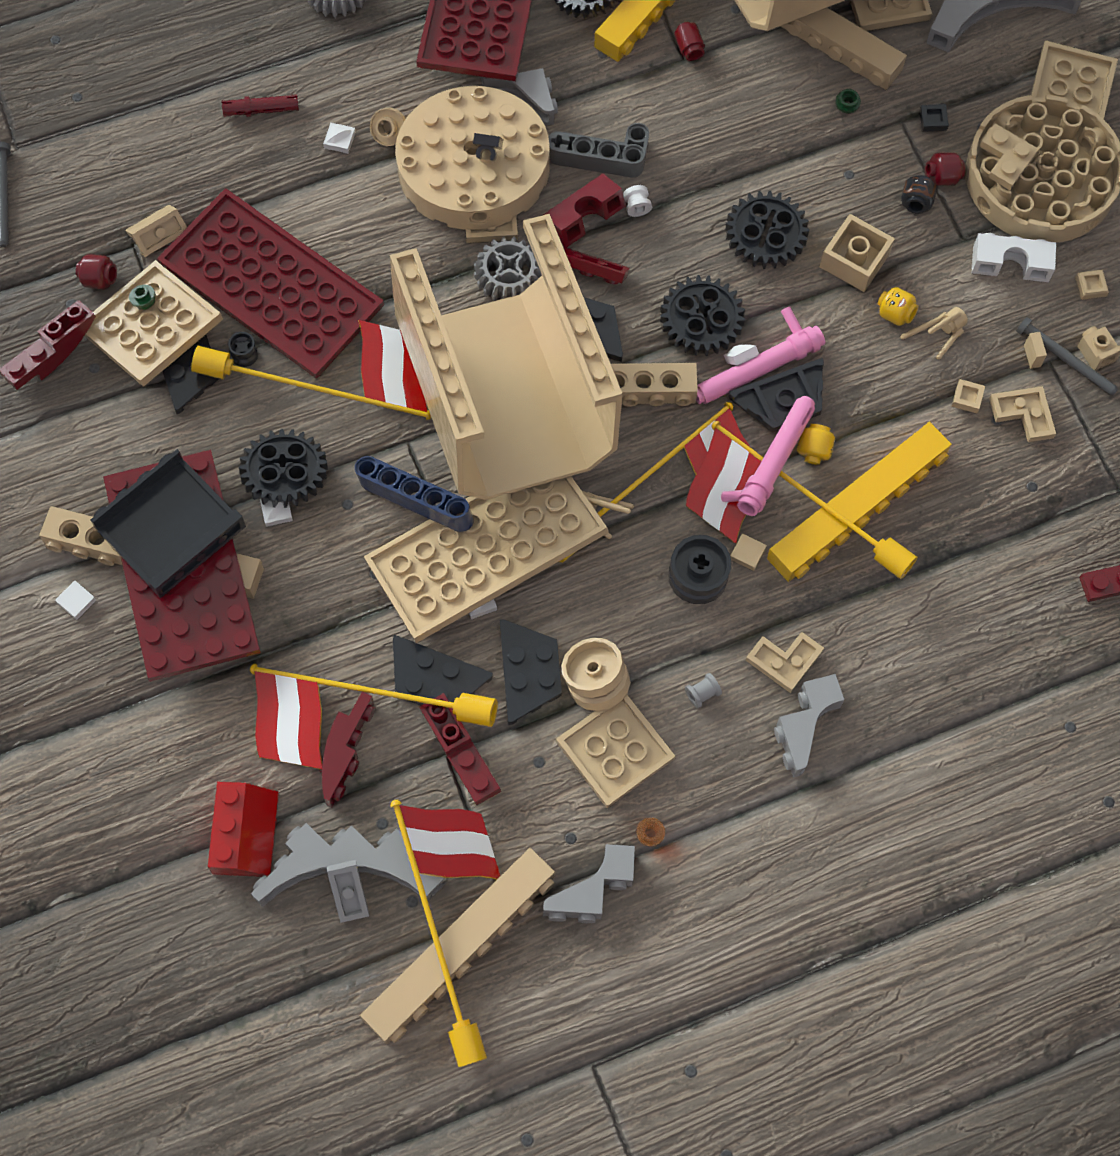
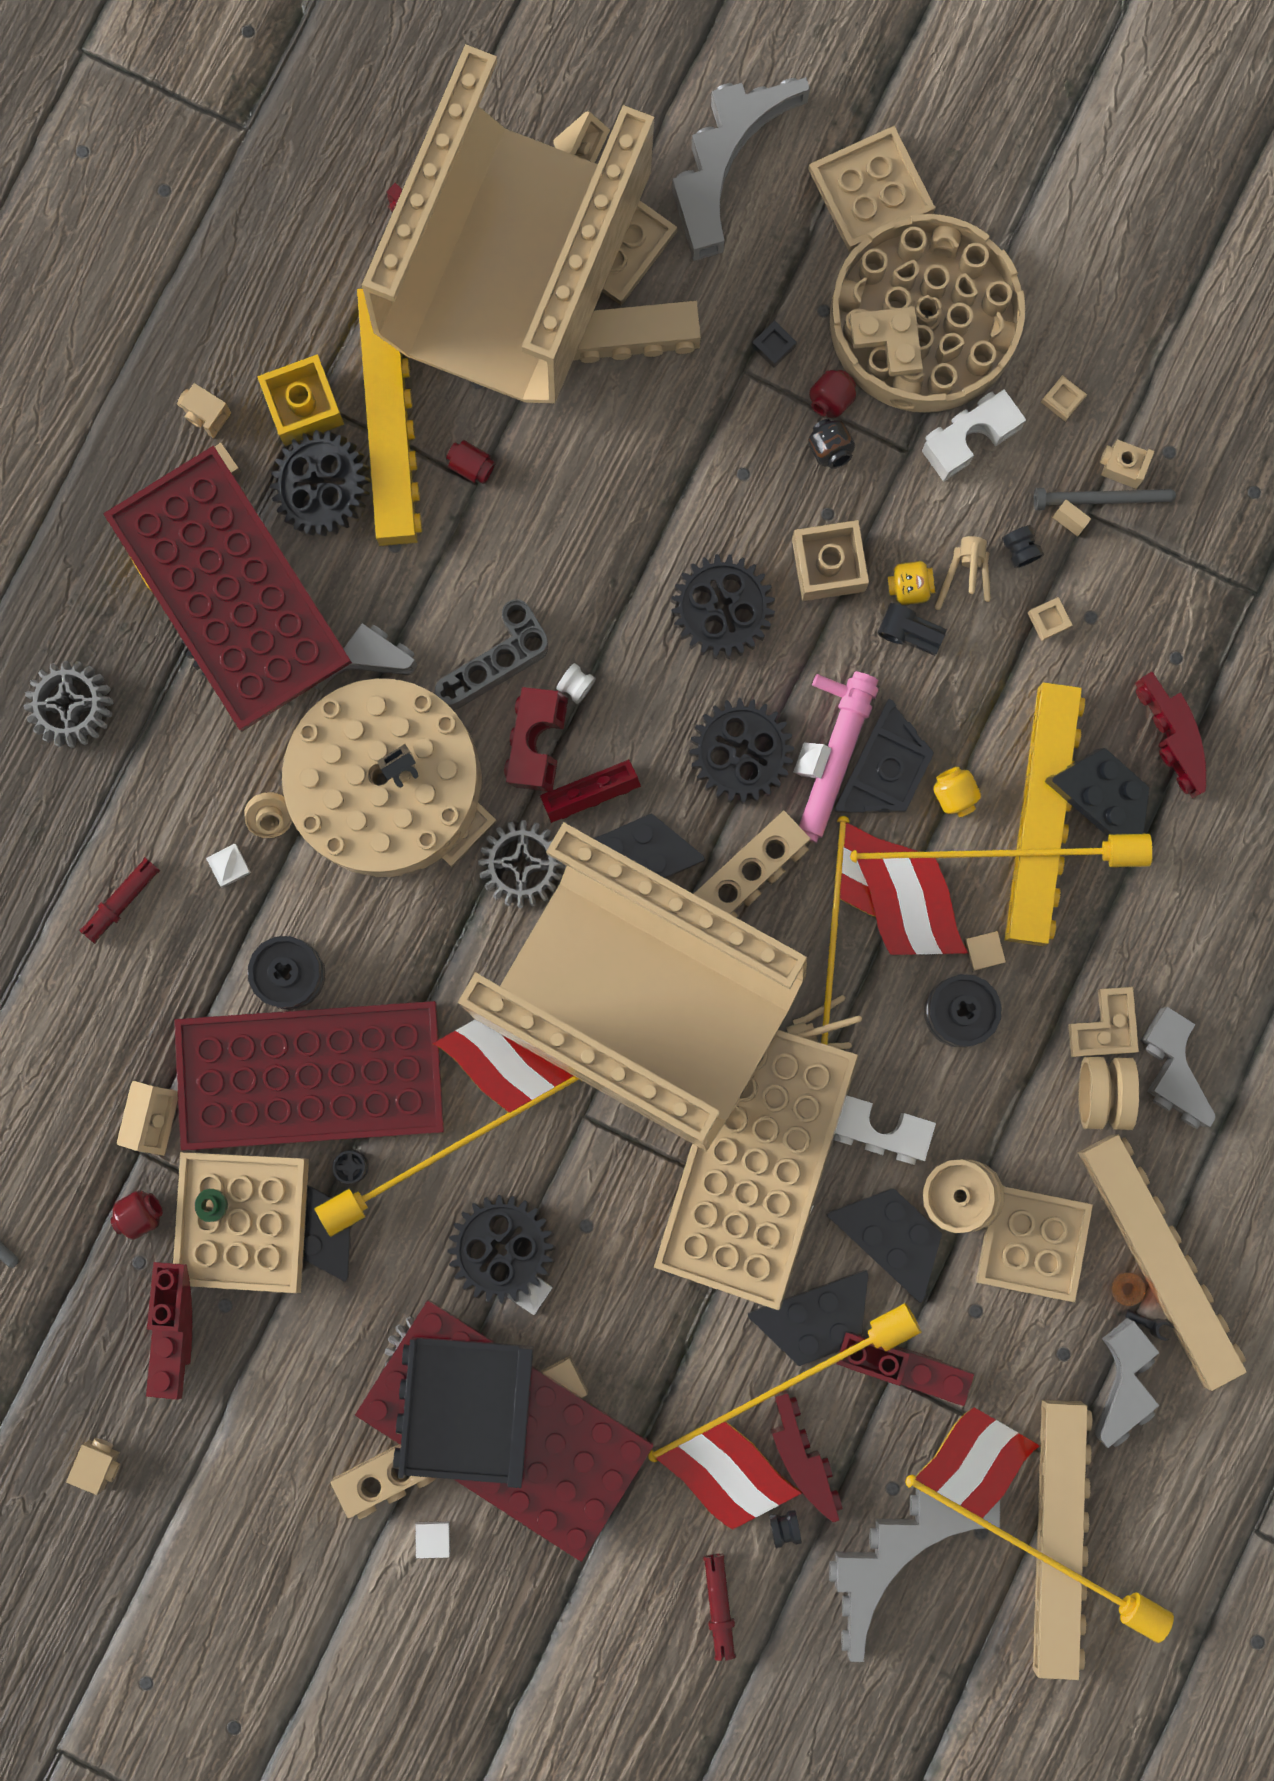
camera: 40 degrees left, 15 degrees up
(198, 800) = (721, 1621): none -> dark red pin
(243, 830) = (785, 1609): red slope -> none
(290, 781) = (785, 1529): none -> black wheel
(313, 214) = (267, 969): none -> black wheel
(348, 891) = (927, 1581): light grey plate -> none
(421, 502) = (632, 1175): dark blue beam -> none
(592, 616) = (908, 1139): none -> white arch
(644, 866) = (1152, 1325): none -> black hand
(688, 833) = (1162, 1261): none -> tan brick
(703, 690) = (1062, 1120): light grey bush -> none
(747, 691) = (1108, 1093): none -> tan wheel
(760, 485) = (955, 890): bright pink cylinder -> none
(850, 96) = (681, 387): dark green plate -> none
(871, 328) = (903, 626): none -> black piece
(911, 515) = (1104, 793): none -> black wing
(988, 341) = (1022, 546): none -> black wheel
(992, 525) = (1184, 744): none -> dark red slope
(1026, 405) = (1117, 581): tan plate -> none

